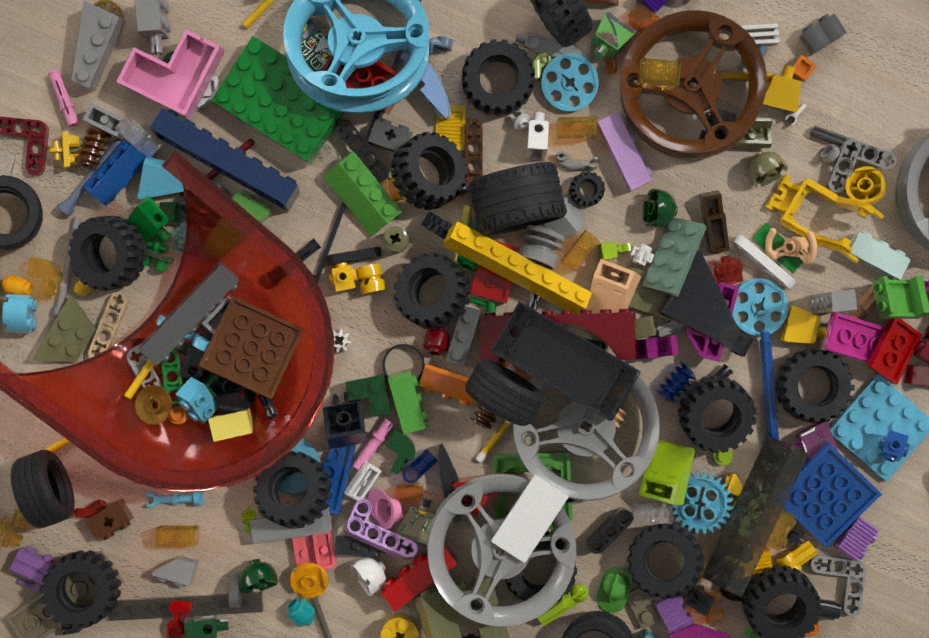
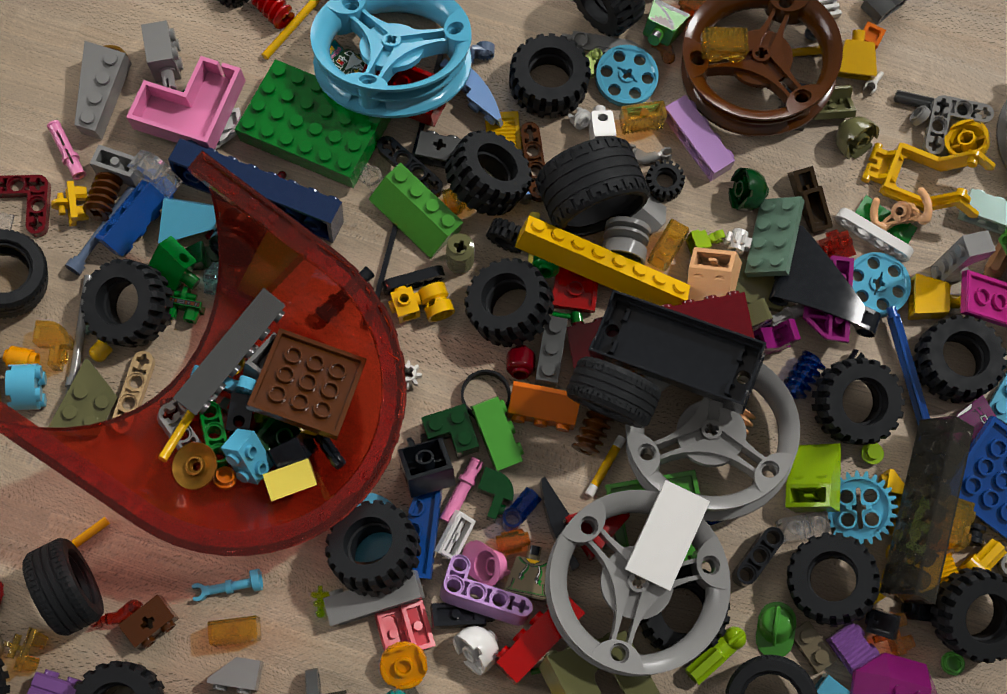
camera: 15 degrees left, 15 degrees down
(257, 576) = (339, 668): dark green cylinder -> none

